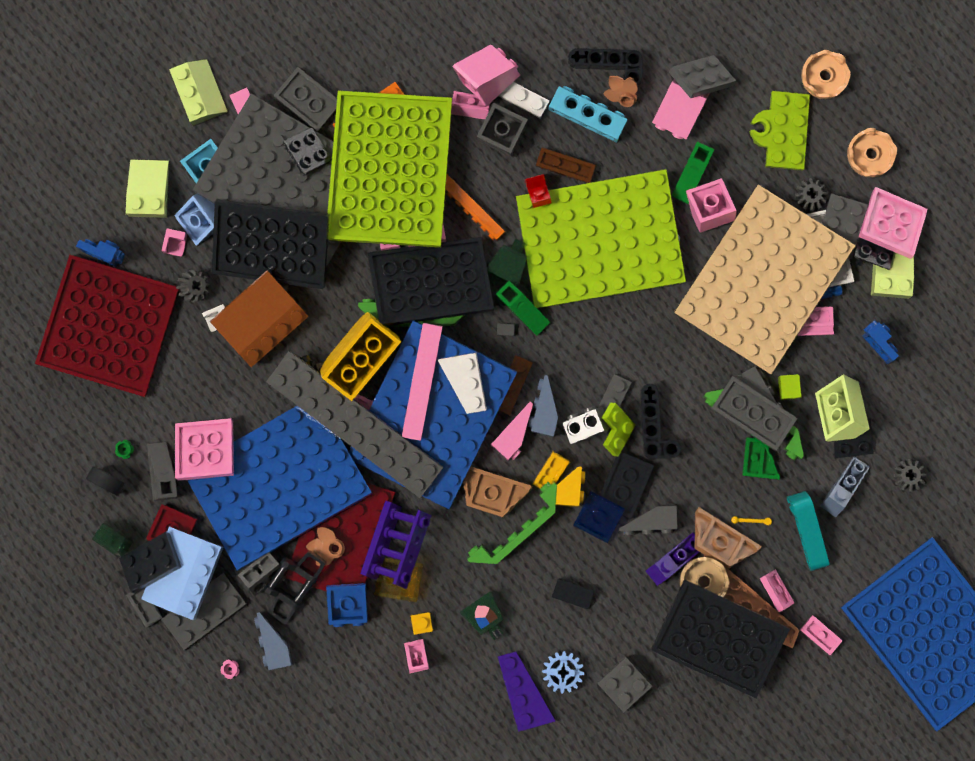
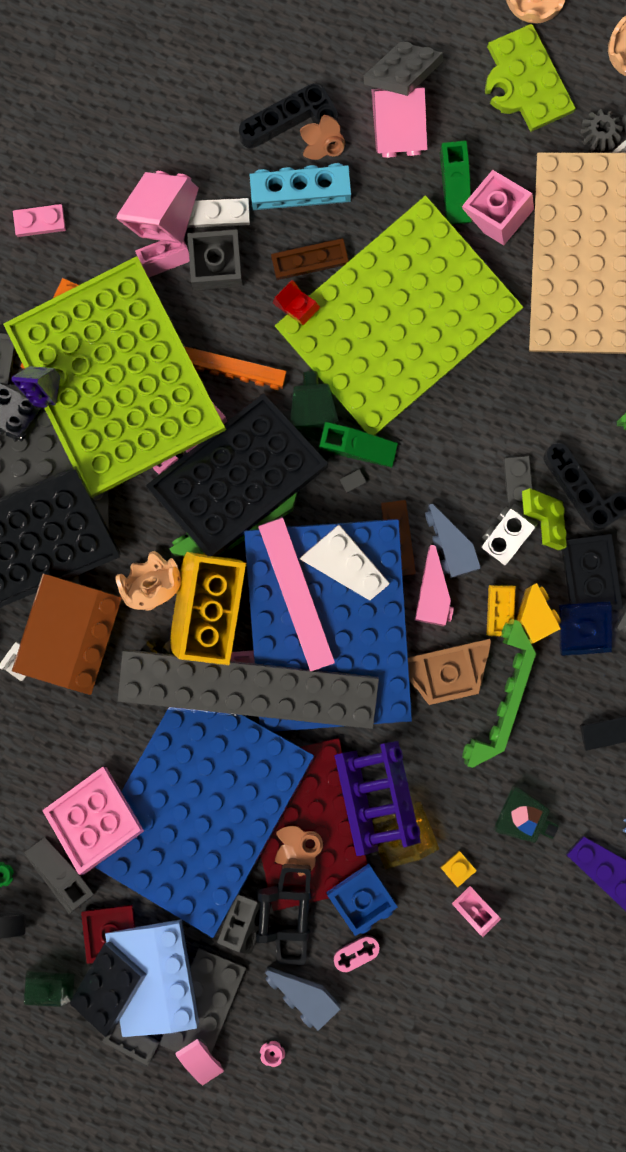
camera: 30 degrees left, 0 degrees up
(181, 644) = (199, 1062): none -> bright pink slope
(322, 632) = (359, 959): none -> bright pink beam
(332, 317) = (149, 582): none -> light nougat plate
(336, 147) = (38, 385): none -> dark purple slope
(402, 33) = (39, 220): none -> bright pink plate

